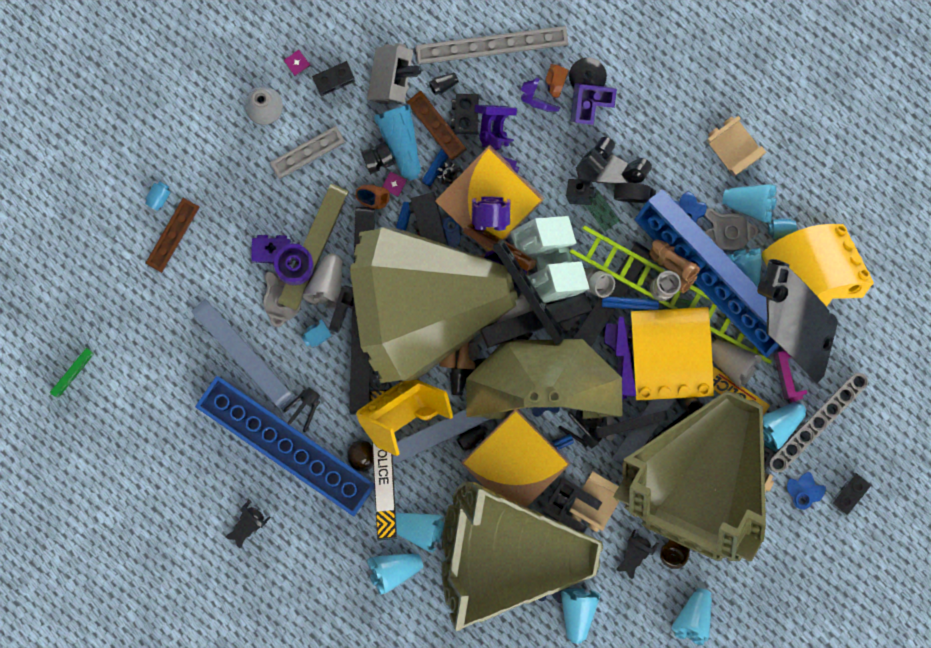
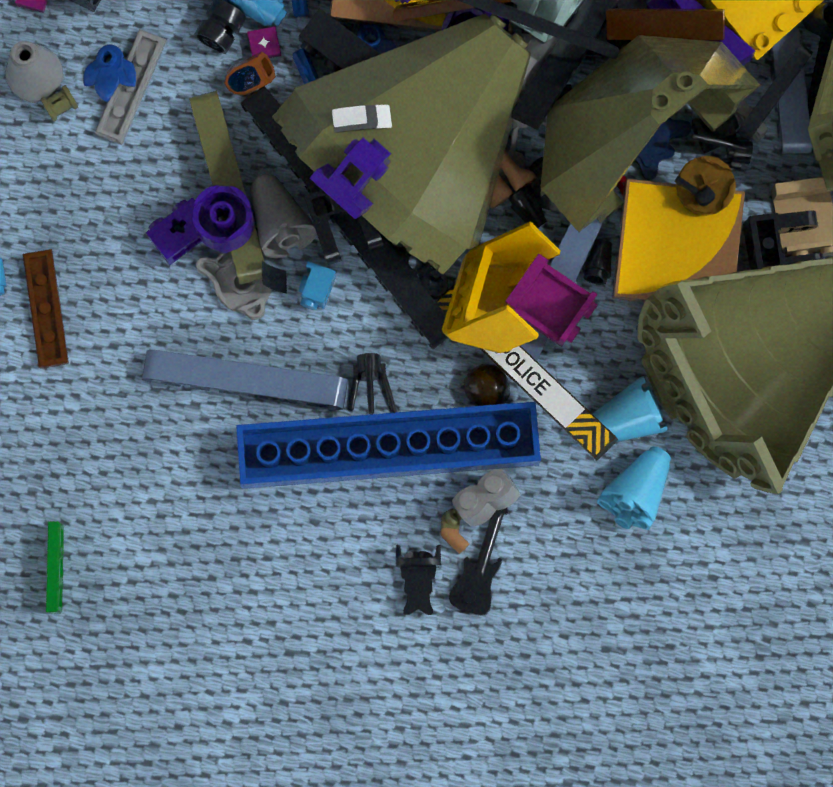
camera: 45 degrees left, 5 degrees down
(263, 132) = (59, 103): none -> olive bush
(270, 552) = (473, 589): none -> black piece
(283, 513) = (450, 530): none -> arm
(298, 313) = (274, 278): none -> black sticker
(300, 138) = (109, 75): none -> blue plate
(309, 512) = (480, 501): none -> light grey brick
(378, 299) = (367, 157): none -> dark purple tile
(396, 275) = (361, 117): none -> white sticker
(426, 440) = (551, 302): none -> magenta panel
(544, 450) = (703, 196): none -> black hand
(552, 445) = (710, 172): none -> pearl gold tile
(602, 344) = (670, 23): none -> reddish brown tile

